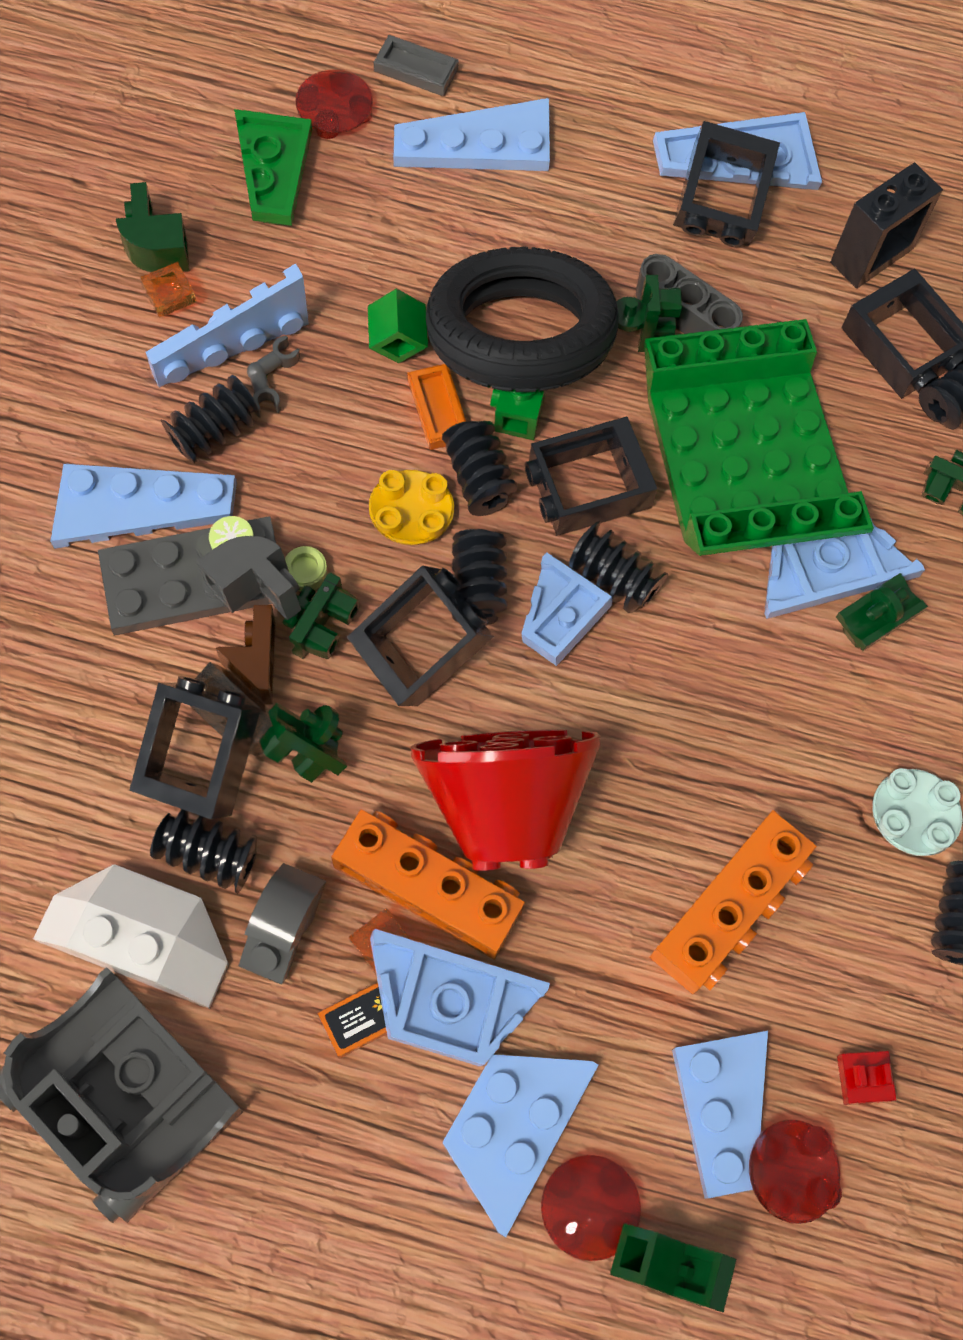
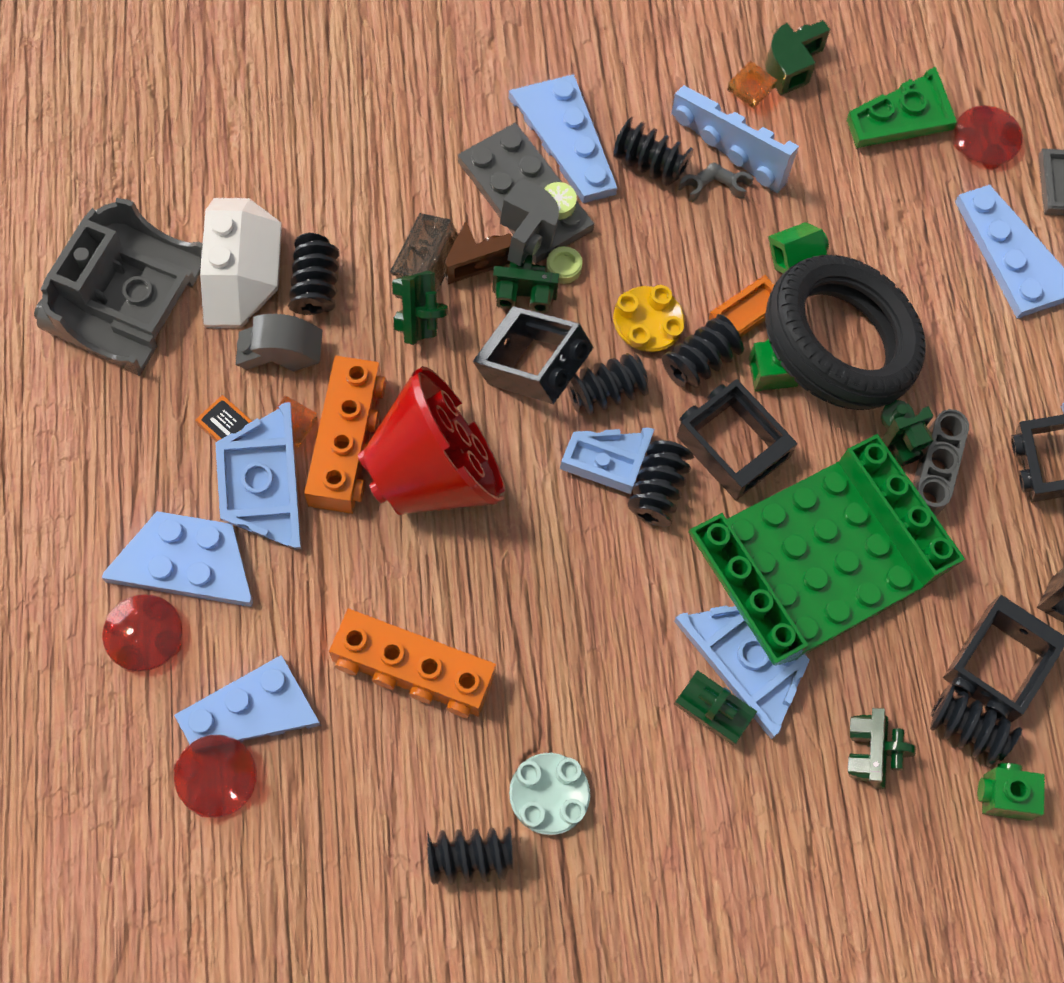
camera: 70 degrees right, 0 degrees up
(231, 760) = (403, 253): black window -> none
(673, 1267) = (112, 698): dark green brick -> none
(866, 1077) = (309, 814): red tile -> none

